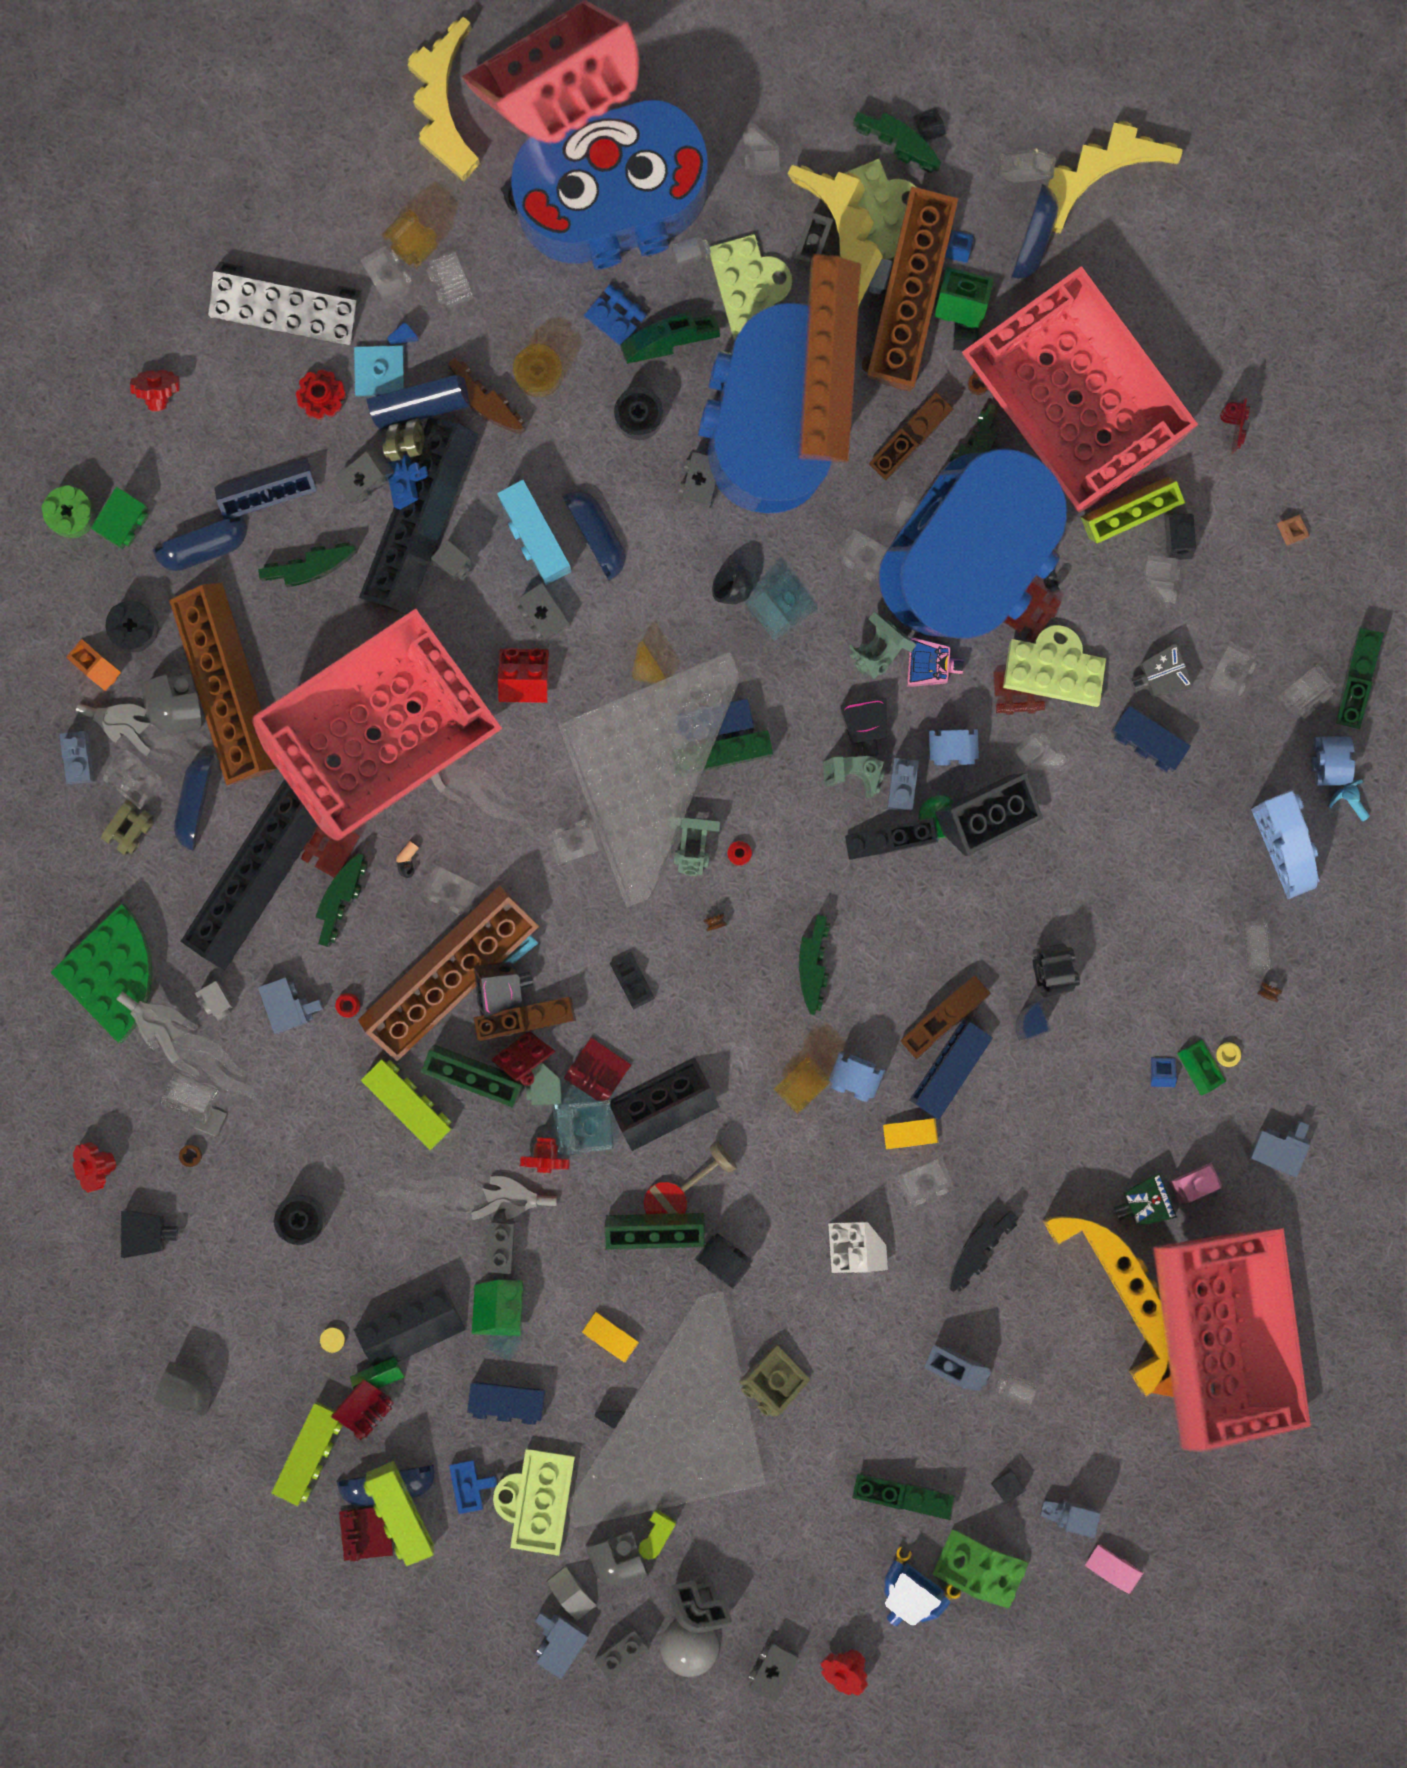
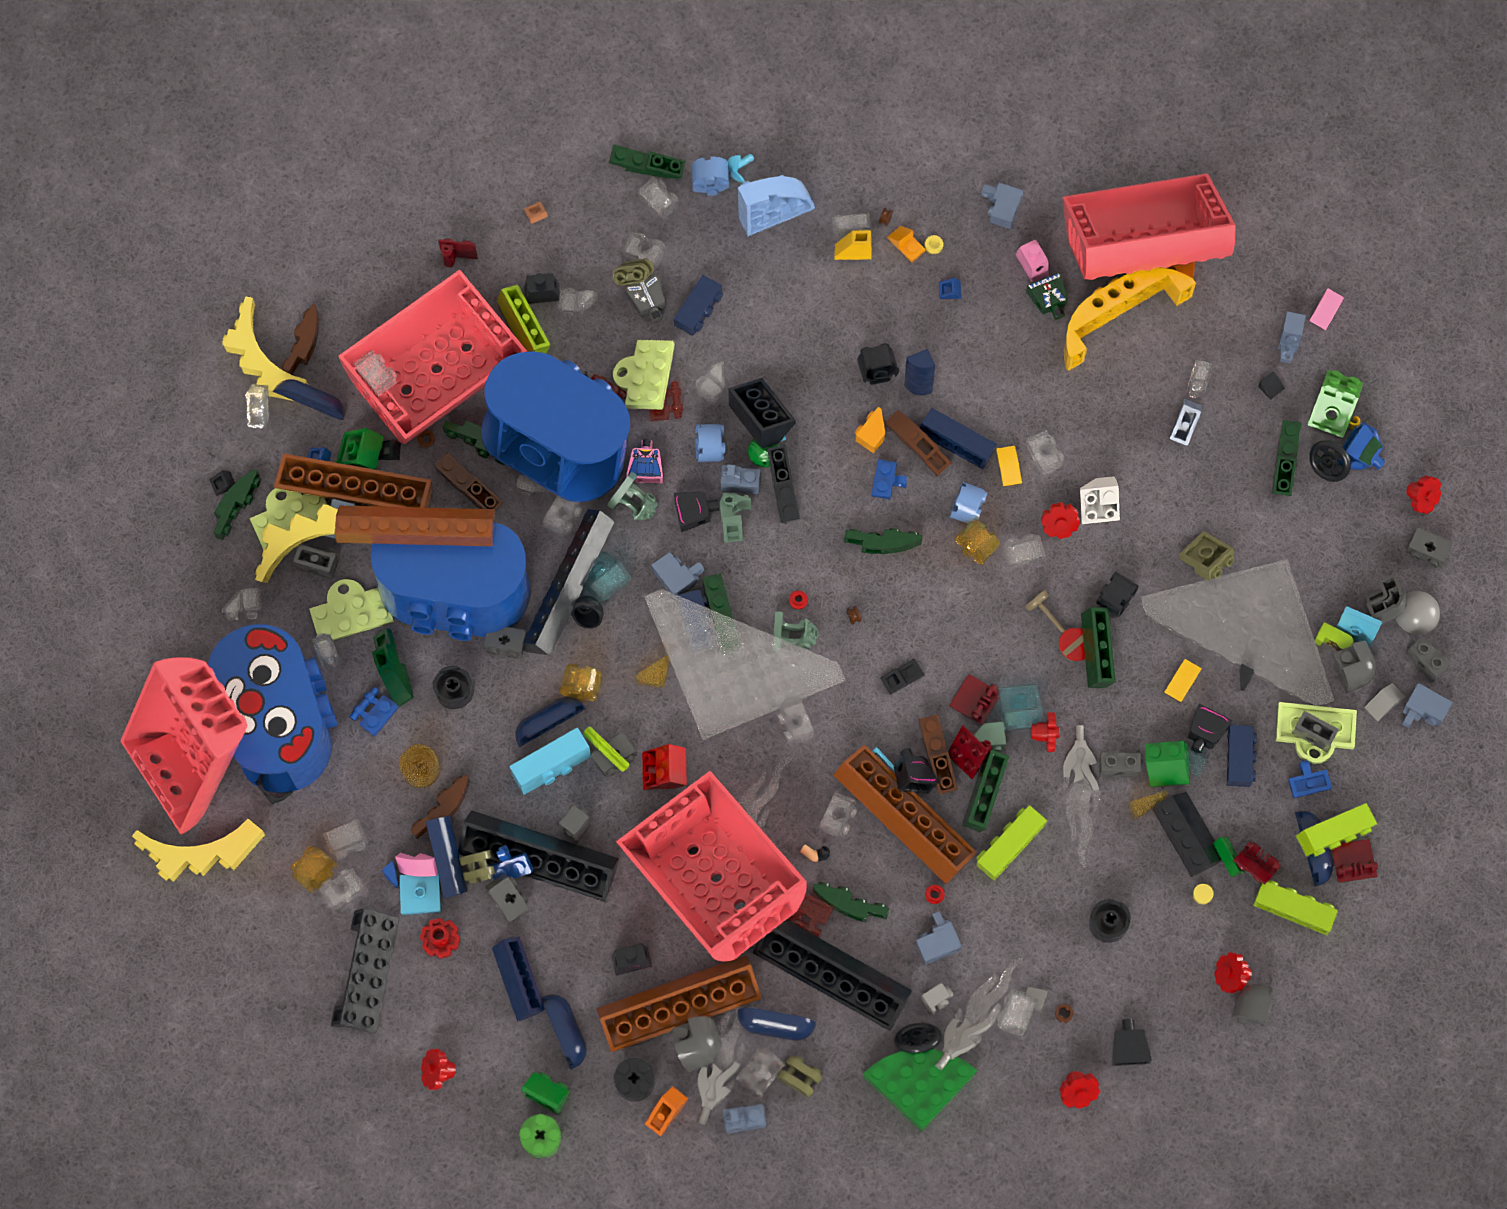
camera: 95 degrees left, 15 degrees down
(163, 973) = (918, 1038): none -> black plate
(226, 1367) = (1232, 972): none -> red plant
(280, 628) = (631, 959): none -> black torso
(317, 565) = (579, 933): dark green slope -> none
(409, 366) = (419, 865): none -> bright pink slope
(446, 1271) = (1145, 804): none -> clear yellow slope
(527, 1498) = (1315, 731): none -> dark grey brick
(543, 1362) = (1207, 728): none -> black torso
(545, 602) = (606, 749): none -> lime axle
(634, 573) = (581, 683): none -> clear yellow brick
(663, 1104) = (998, 647): black slope -> none
(667, 1567) = (1359, 625): none -> medium azure plate
(767, 560) = (568, 583): none -> black slope
(774, 697) = (675, 577): none -> sand blue hinge
(790, 1145) = (1023, 551): none -> clear brick
(829, 1194) = (1060, 520): none -> red plant
(894, 1551) = (1330, 461): none -> black plate
(900, 973) = (886, 479): none -> blue plate
(962, 959) = (872, 432): none -> light orange slope
(972, 1258) = (1100, 417): black slope -> none
(1051, 313) = (375, 373): none -> clear brick
(1128, 231) = (306, 335): none -> reddish brown slope
(1198, 654) = (633, 272): none -> olive brick
(1201, 1067) = (945, 263): green slope -> none
(1226, 948) = (854, 246): none -> yellow slope
(1231, 1017) = (906, 243): none -> light orange slope

